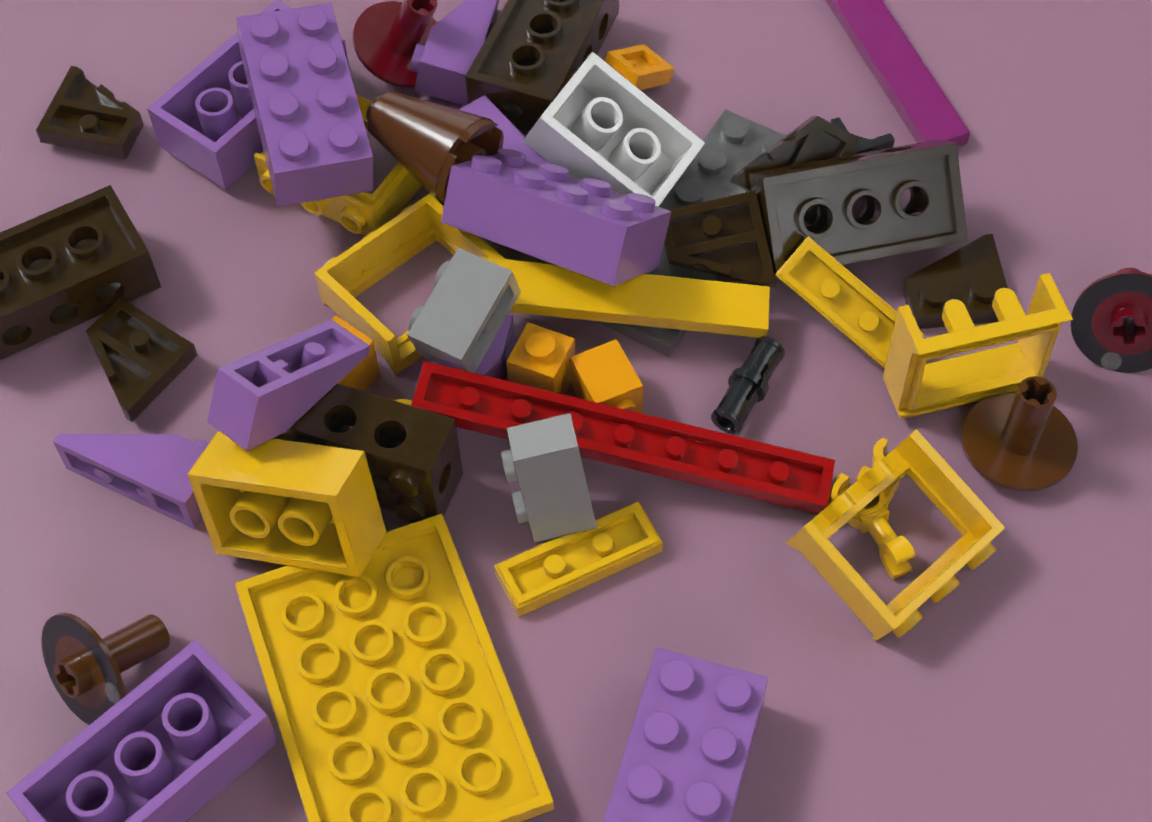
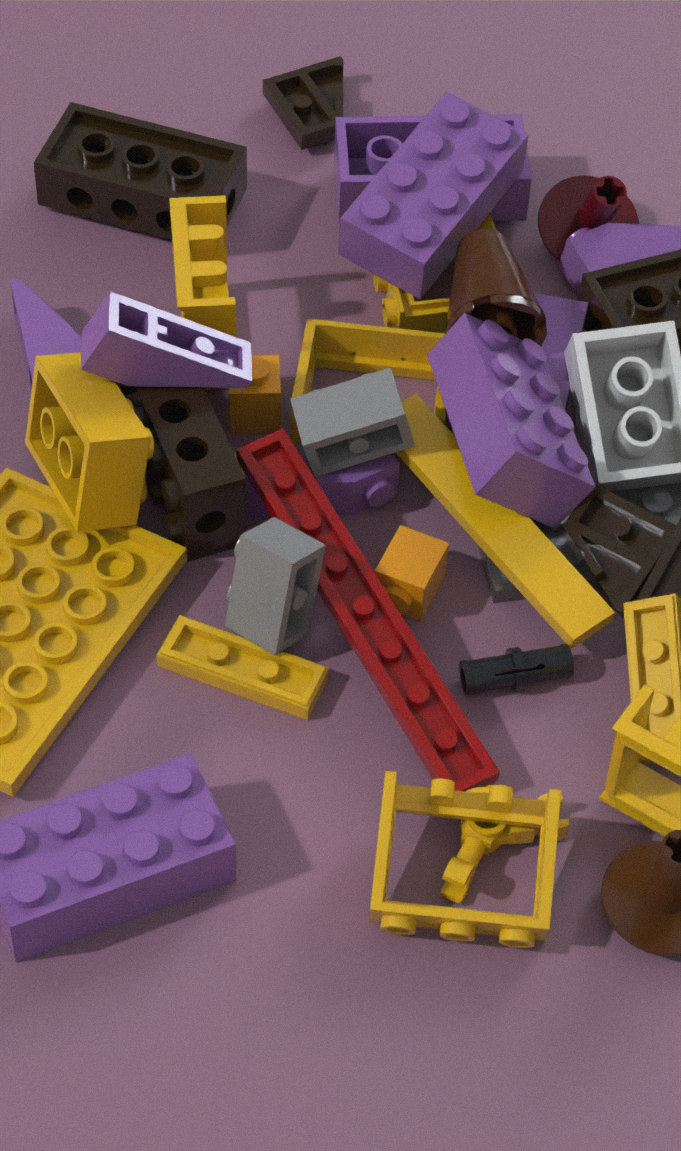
camera: 45 degrees right, 5 degrees down
(137, 355) = (140, 272): dark brown wing -> none
(211, 322) = (201, 262): none -> yellow window
(541, 359) = (376, 513): light orange brick -> none

